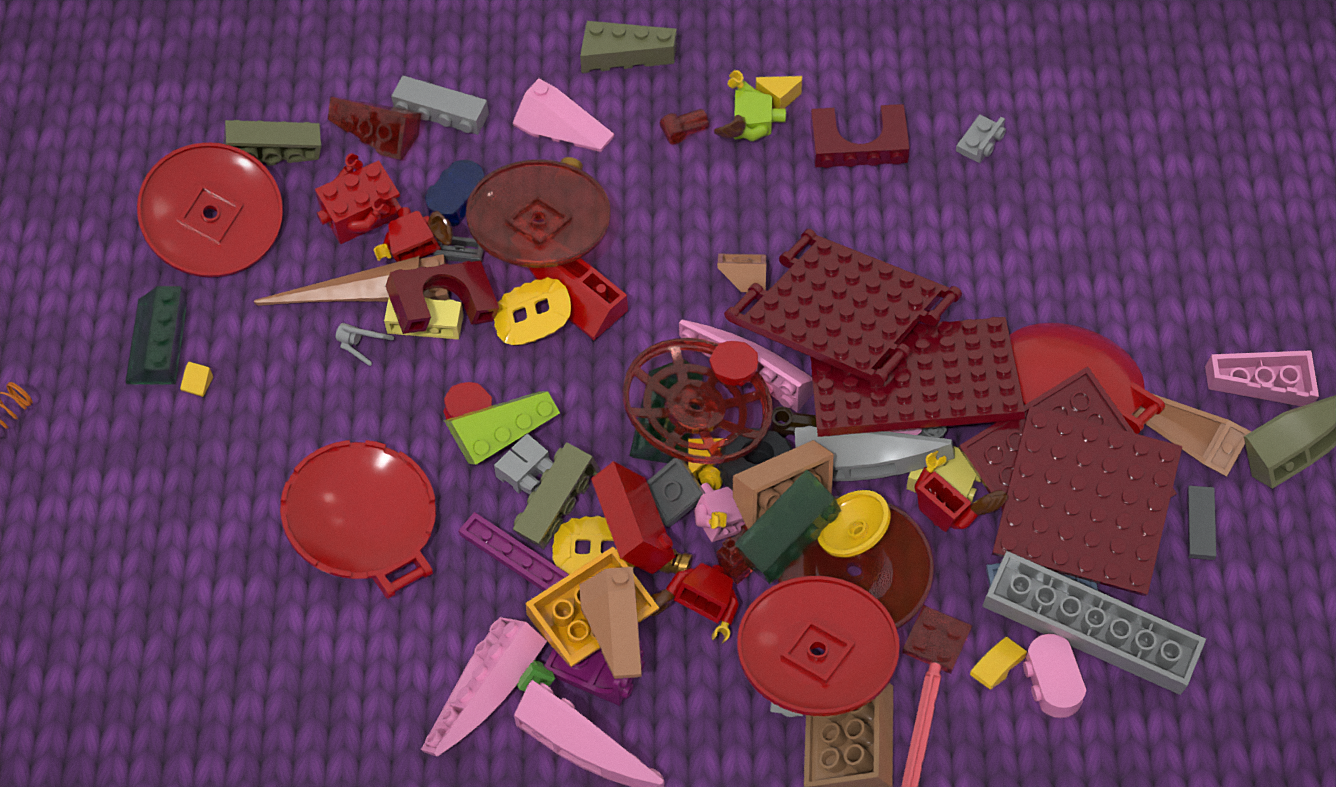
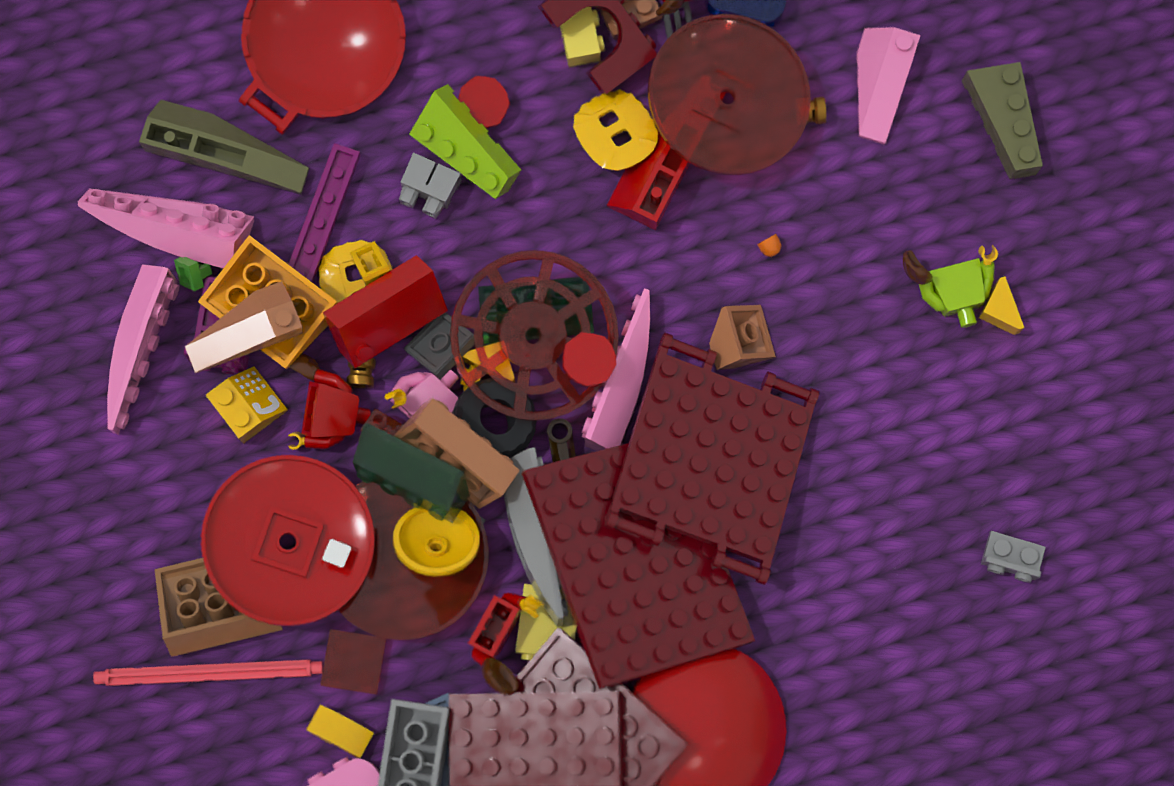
camera: 70 degrees right, 20 degrees up
(420, 632) = (219, 146): none -> olive wedge
(555, 495) = (400, 226): olive wedge -> none
(583, 524) = (370, 262): none -> yellow slope
(671, 232) = (770, 246): none -> orange hinge
(675, 667) = (246, 403): none -> yellow slope
(678, 127) = (914, 209): clear red piece -> none
(833, 150) = (962, 455): dark red arch -> none
(841, 608) = (336, 553): none -> white sticker

